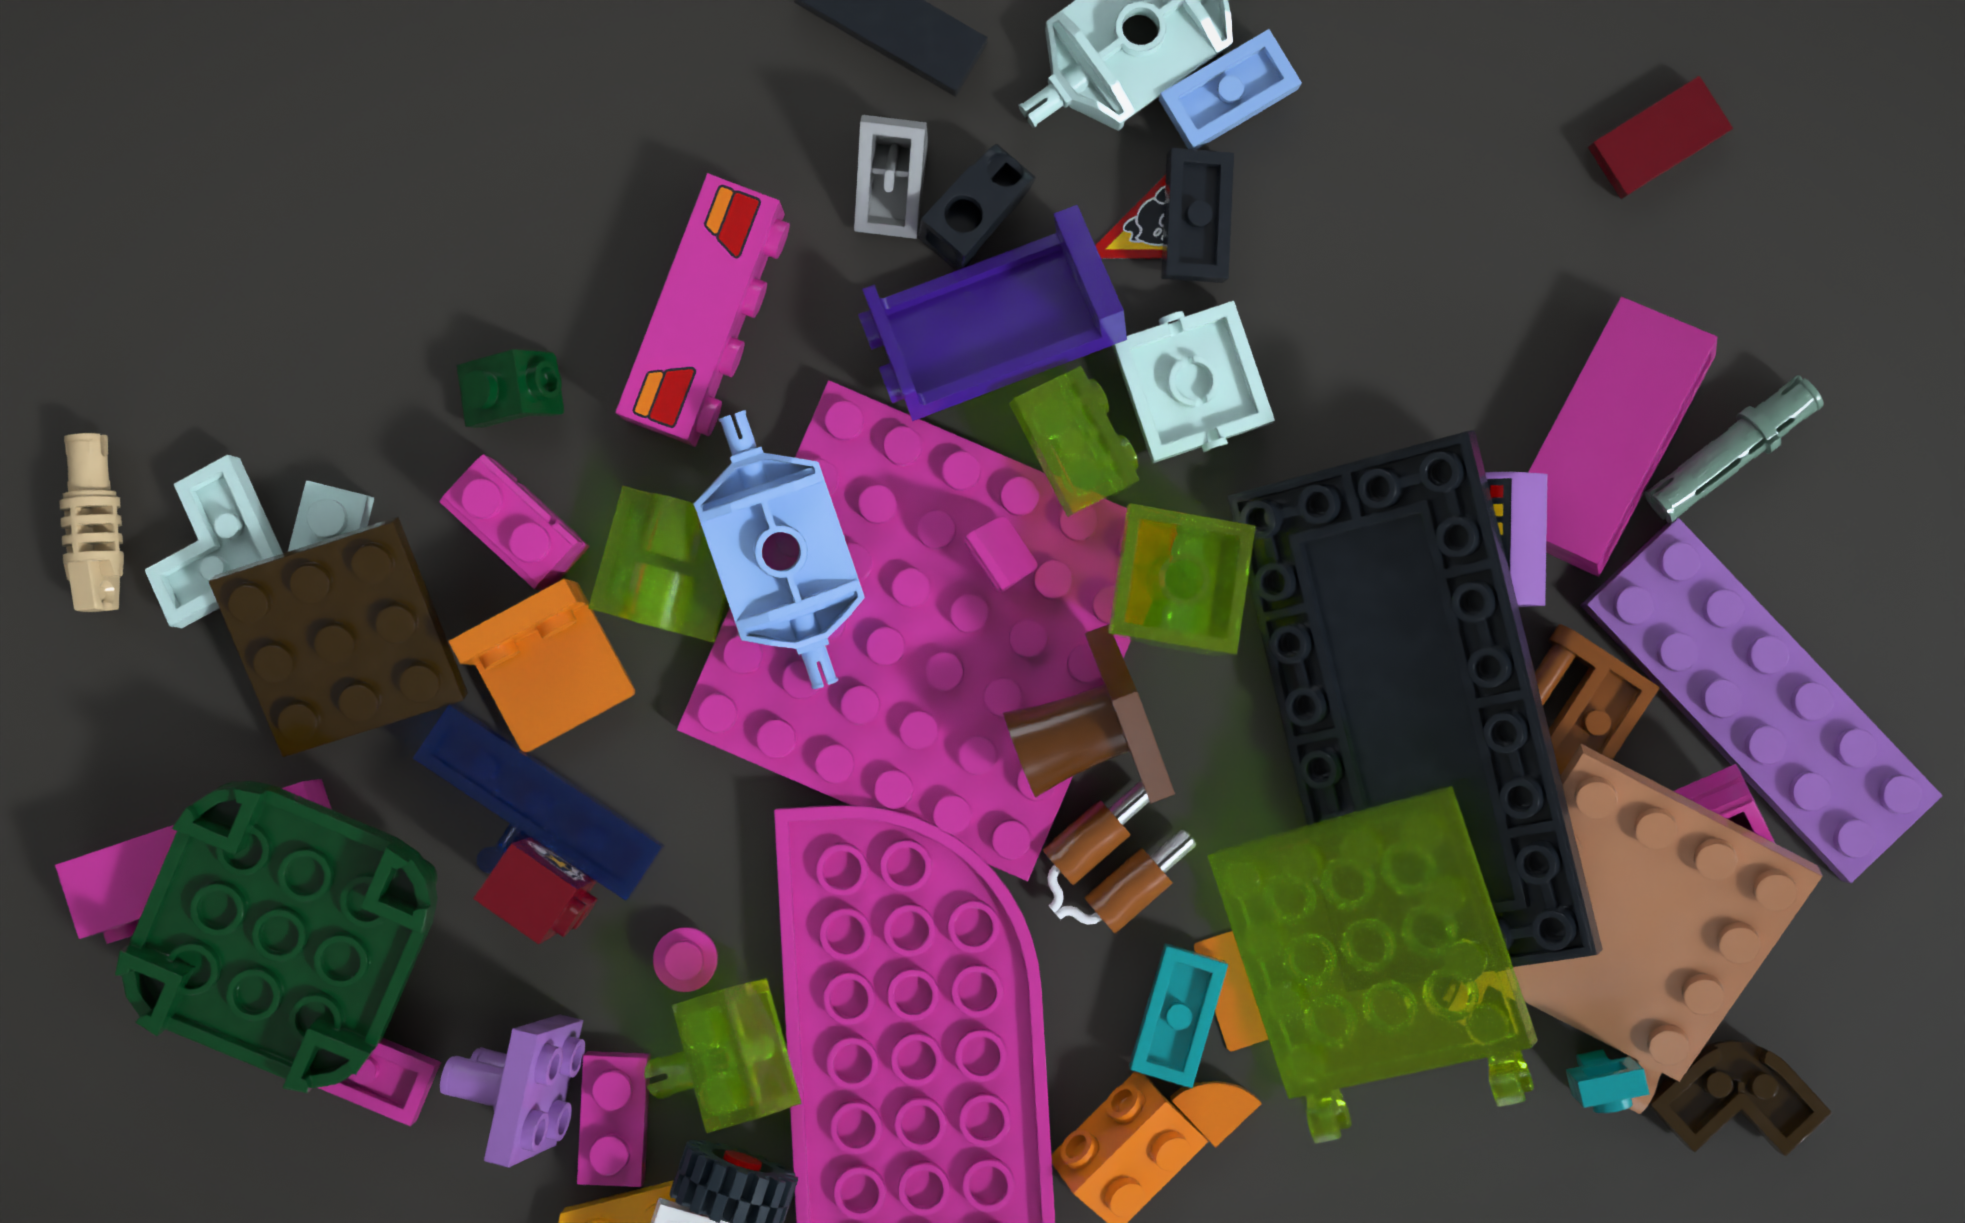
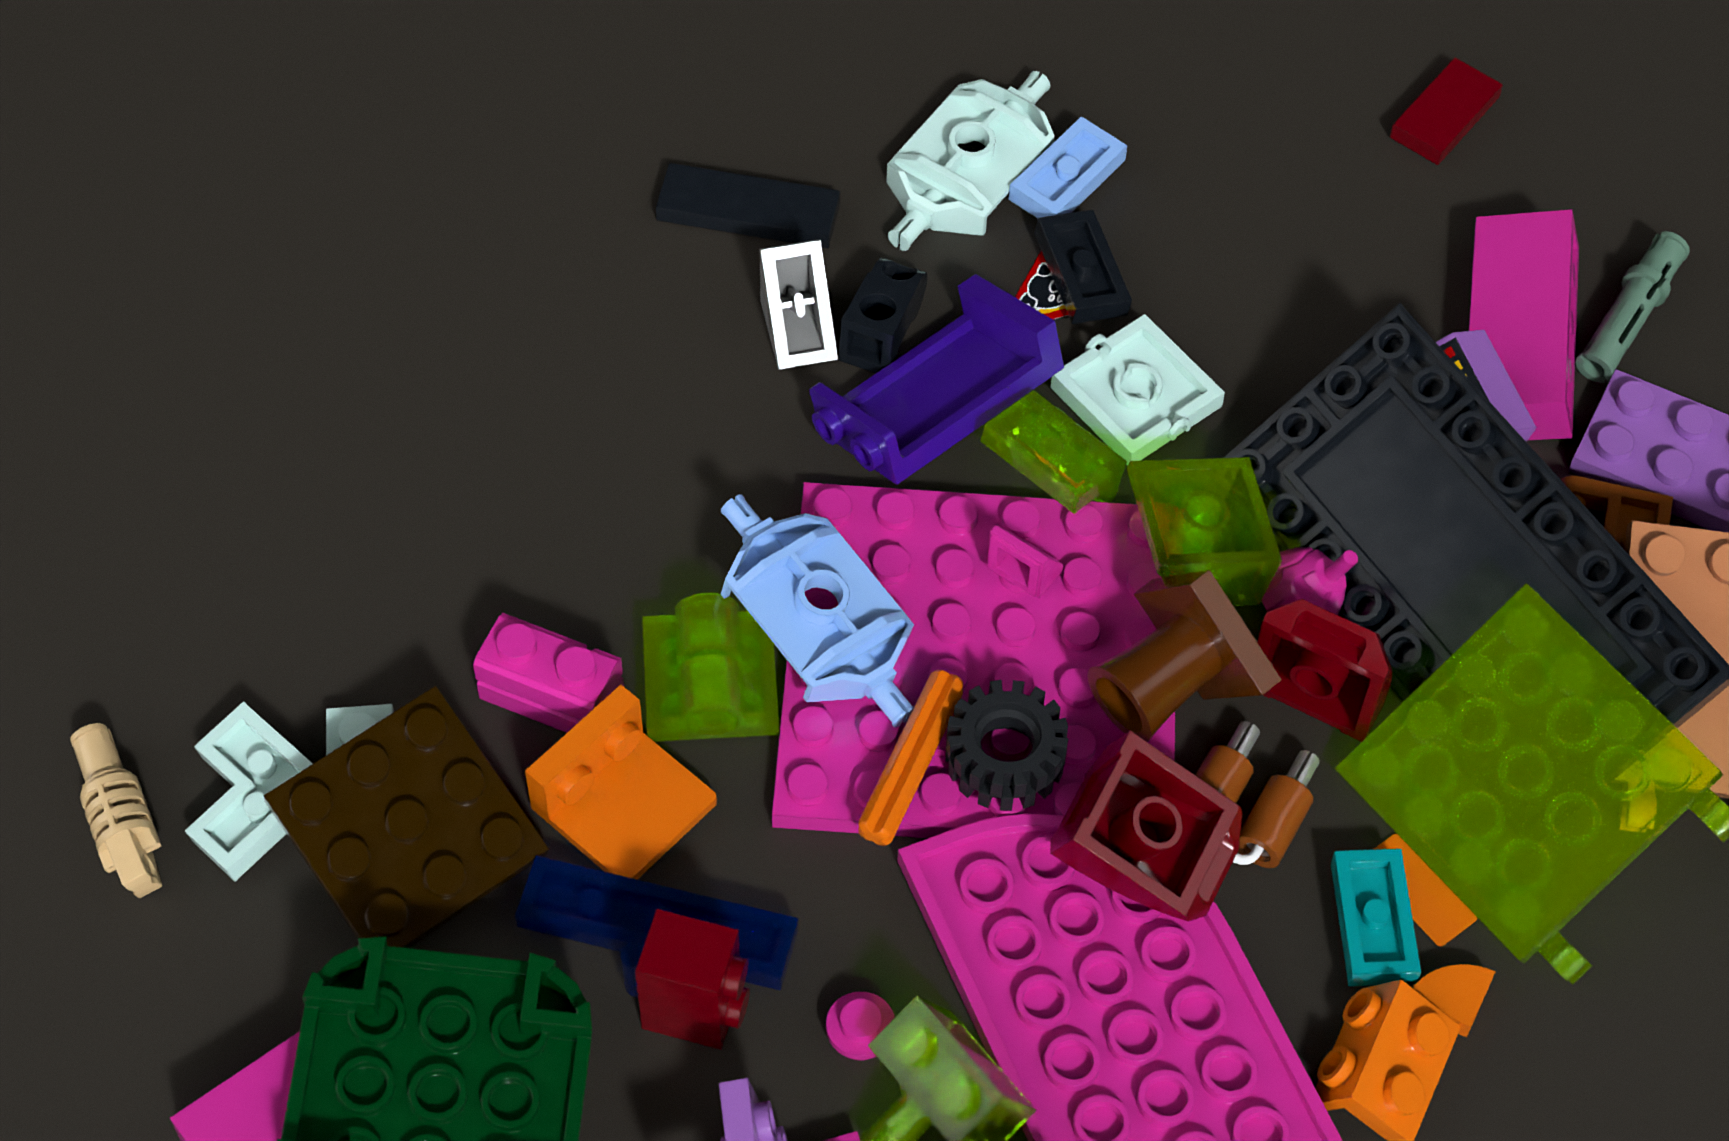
camera: 15 degrees left, 30 degrees down
(510, 387) = (500, 573): dark green bracket -> none
(703, 310) = (665, 462): dark pink brick -> none
(815, 729) = (910, 758): none -> orange axle
(894, 790) = (1006, 711): none -> black tyre
(993, 889) = (1150, 830): none -> dark red slope
(1238, 762) = (1326, 666): none -> dark red slope
(1260, 671) = (1311, 577): none -> dark pink piece

